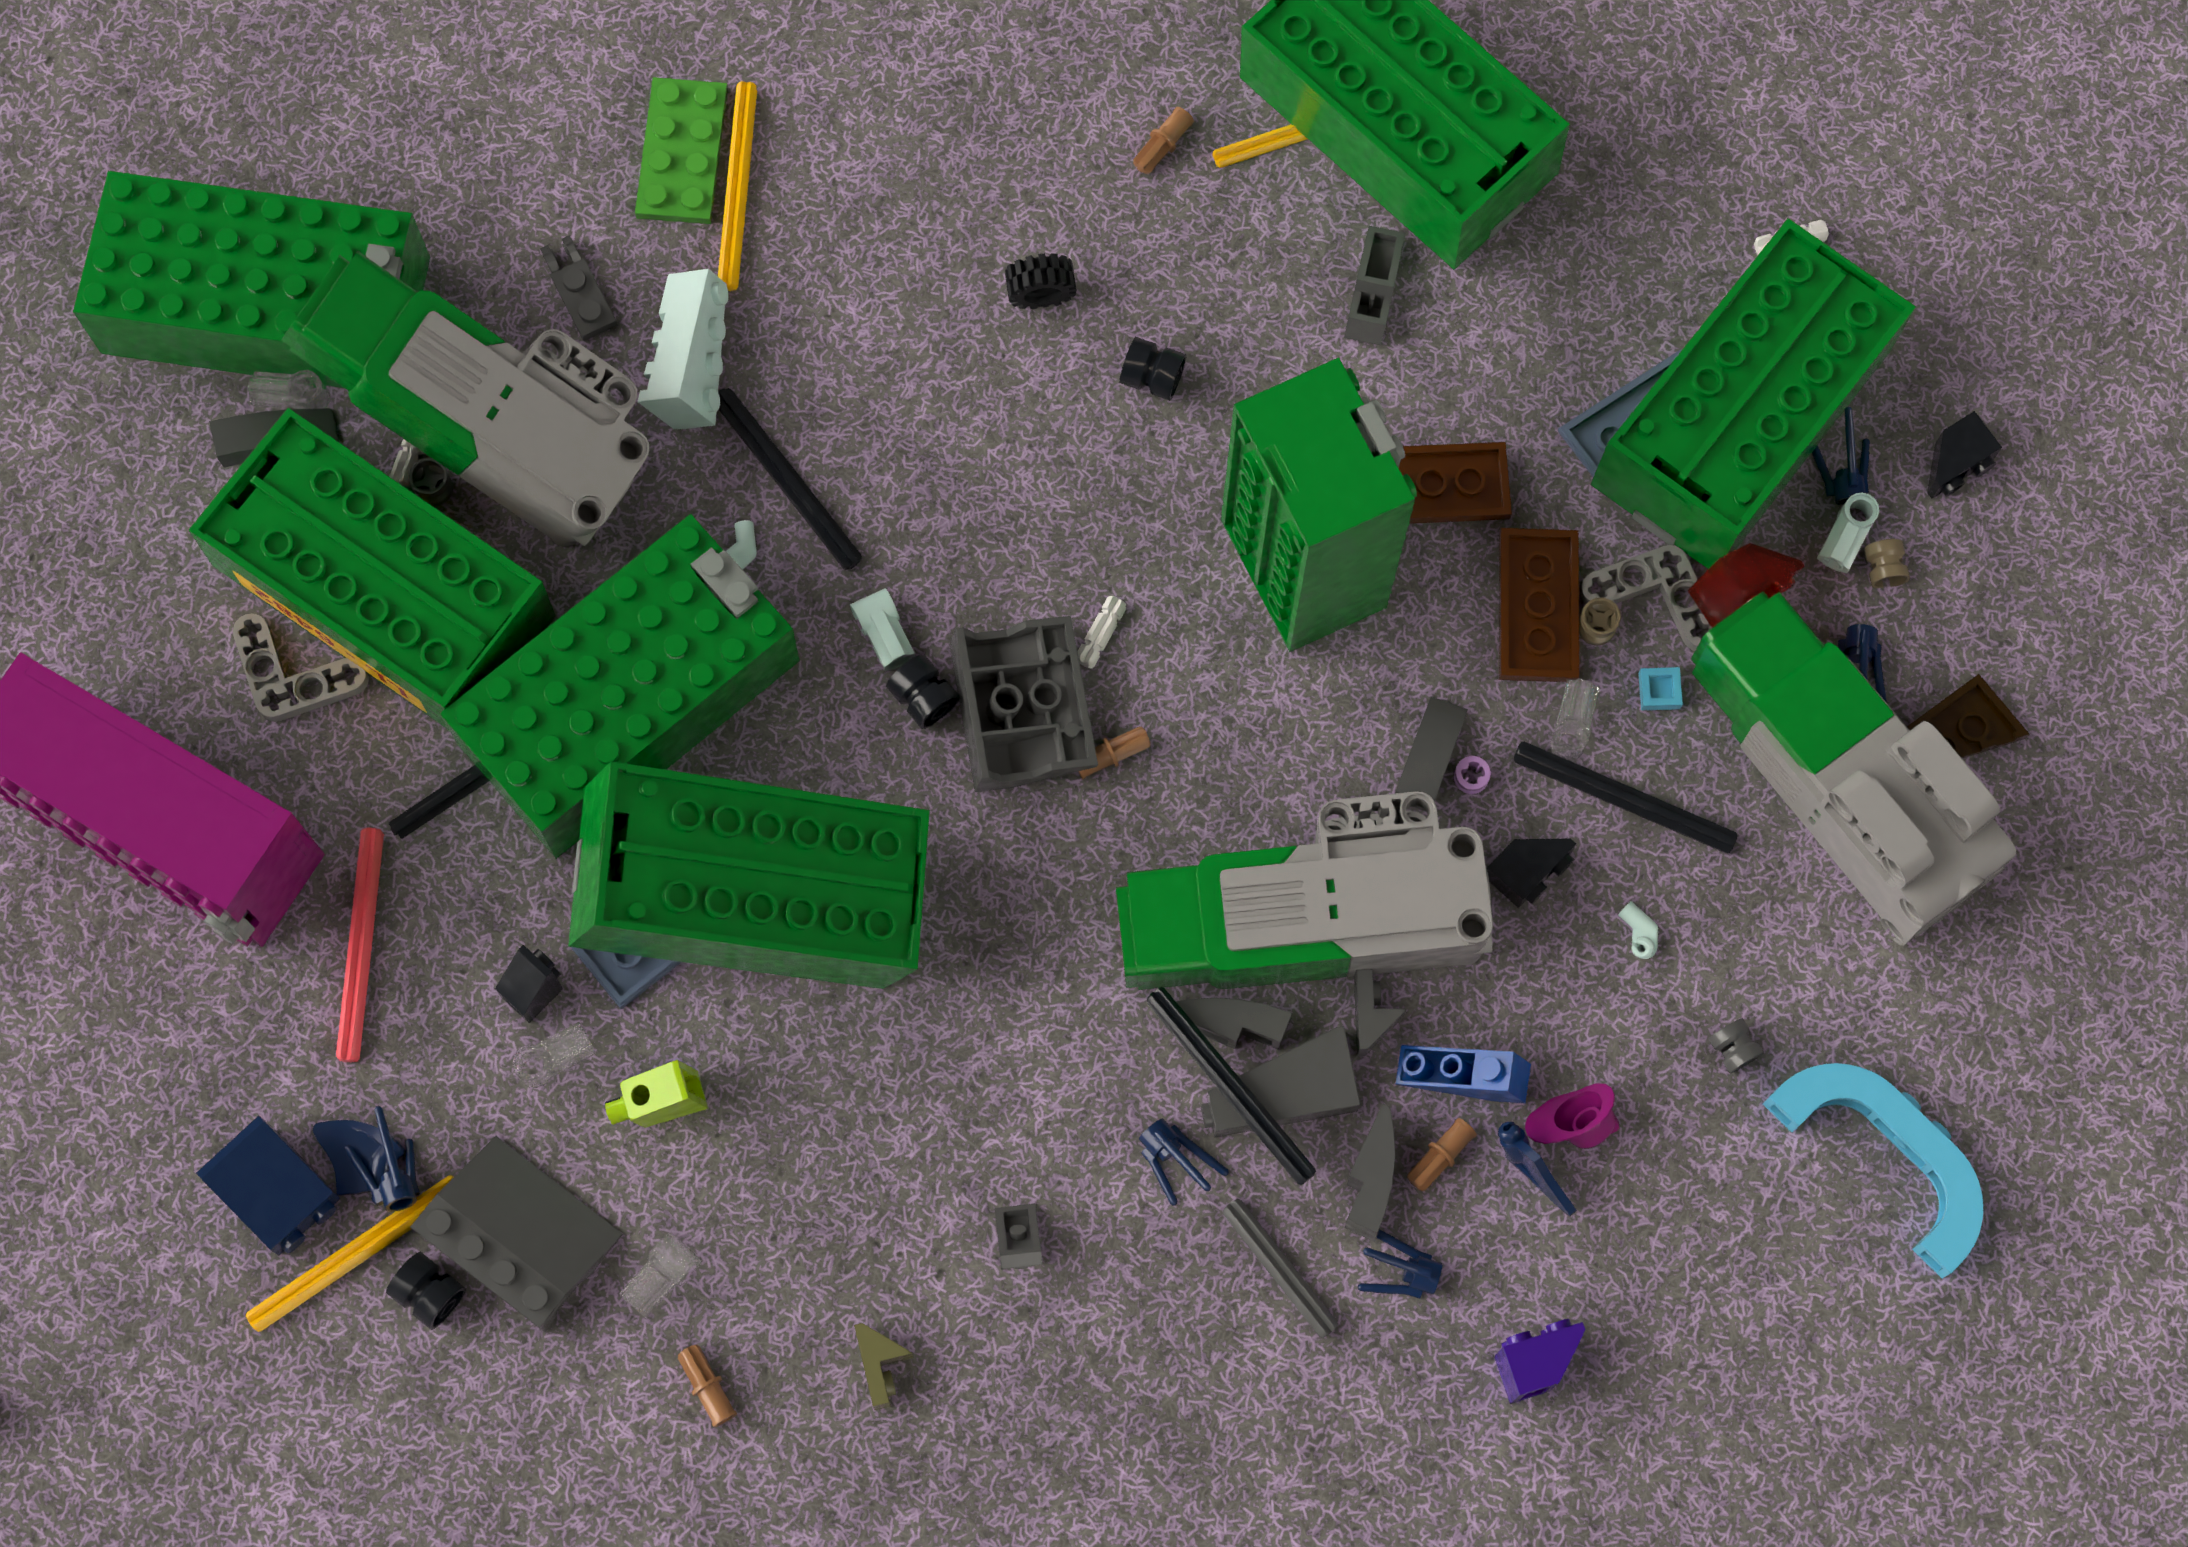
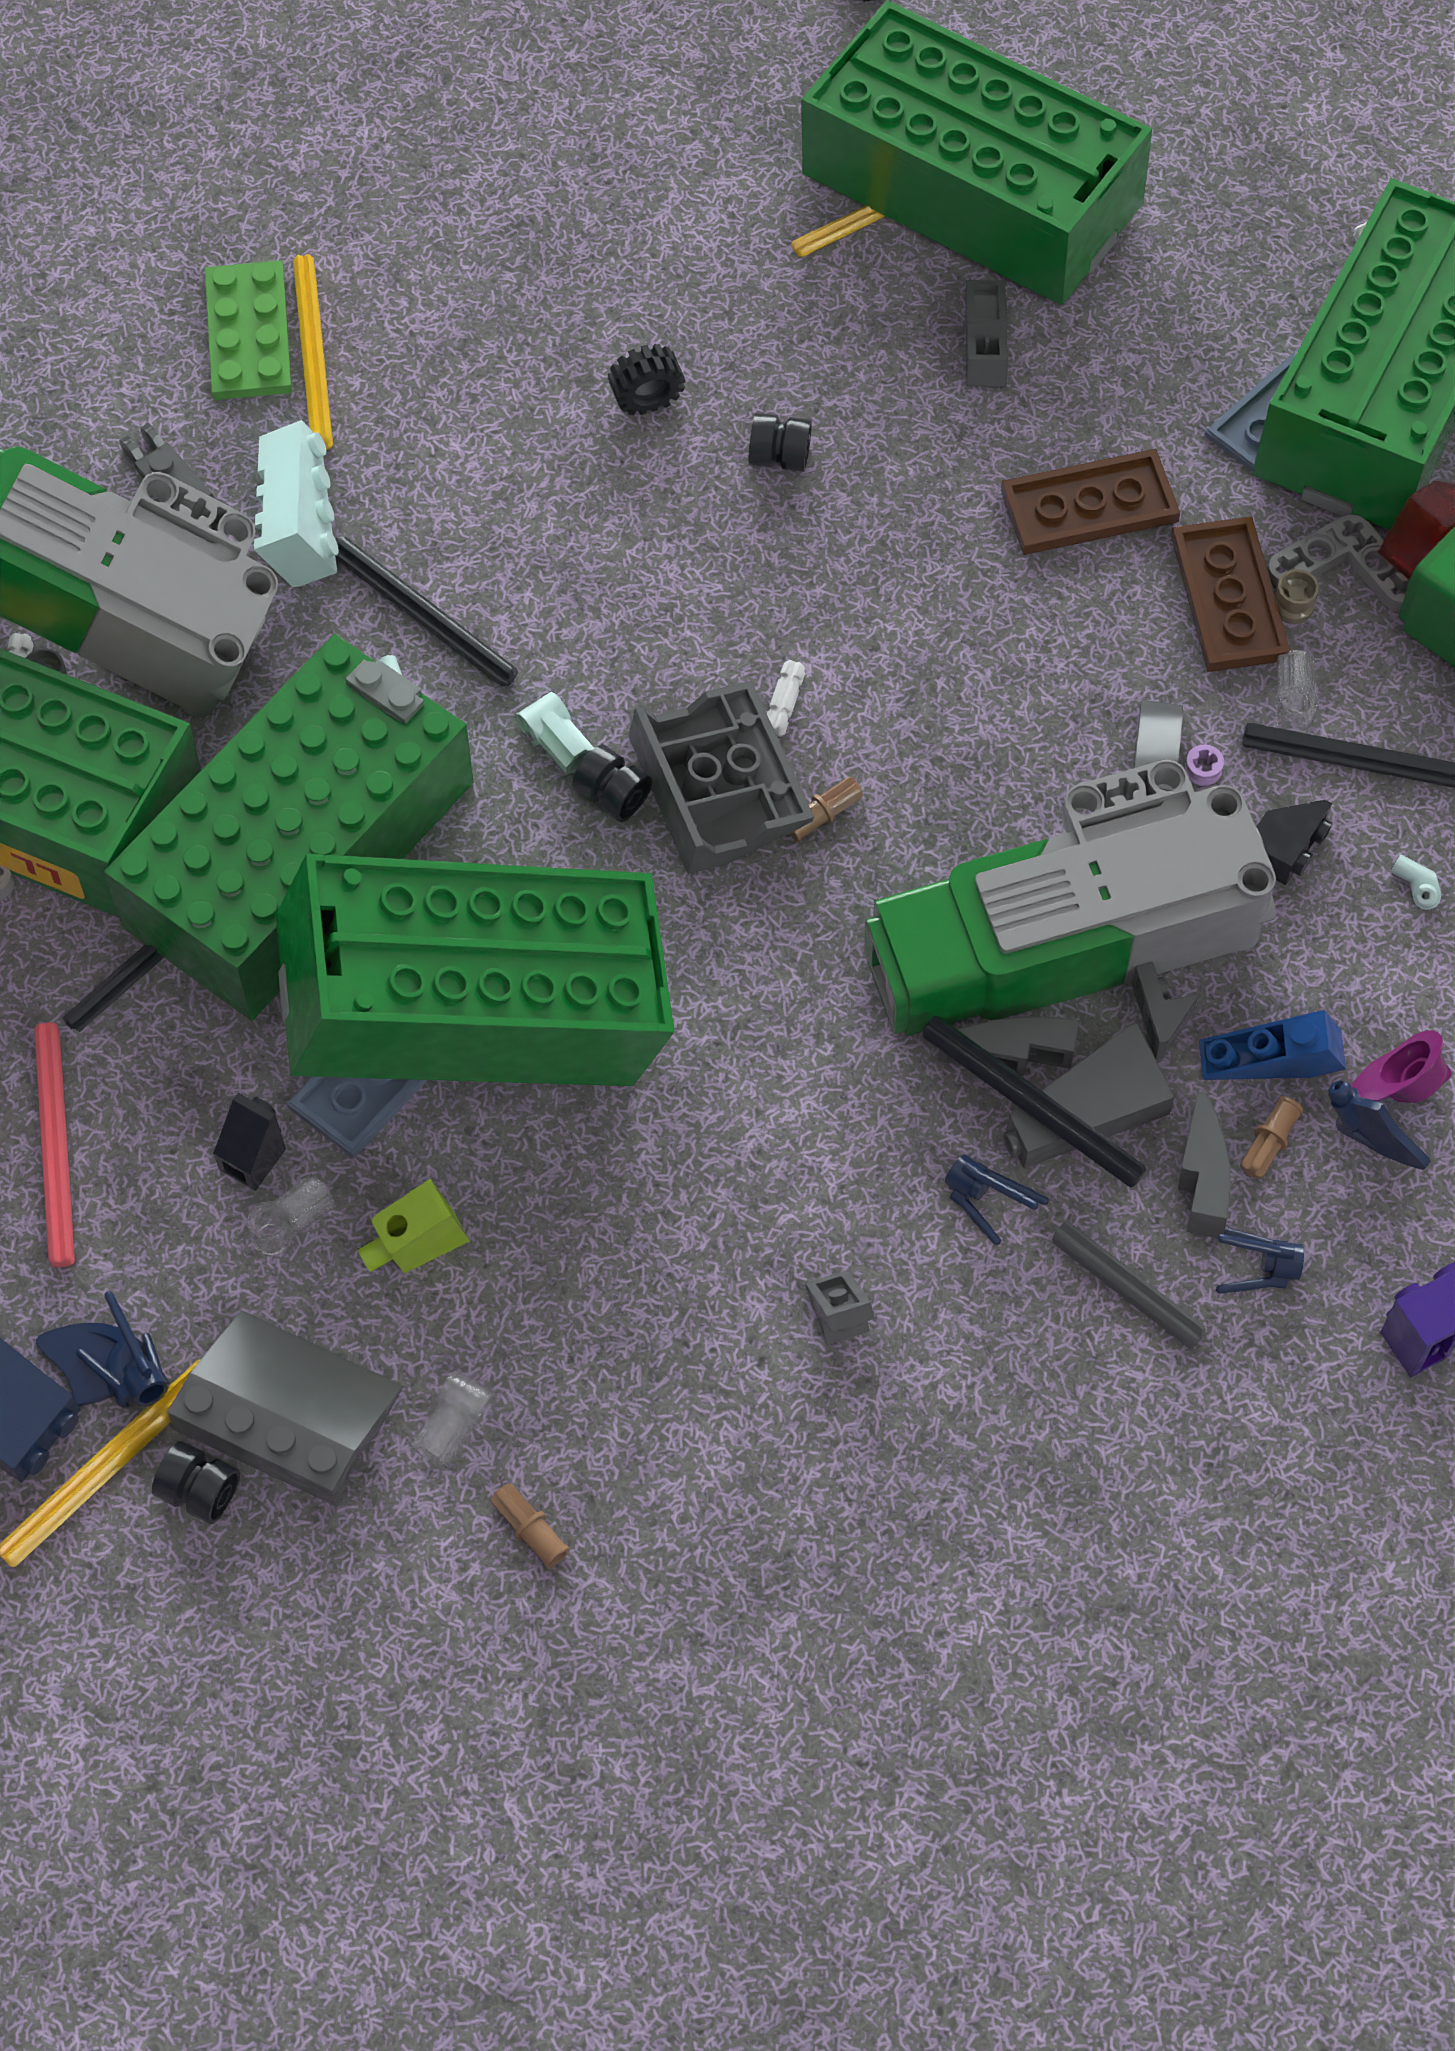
camera: 10 degrees left, 10 degrees down
(875, 1352) = (711, 1452): olive slope -> none
(1163, 140) = (739, 239): medium nougat axle -> none
(1316, 501) = (991, 496): green piece -> none
(1660, 688) = (1375, 649): medium azure plate -> none

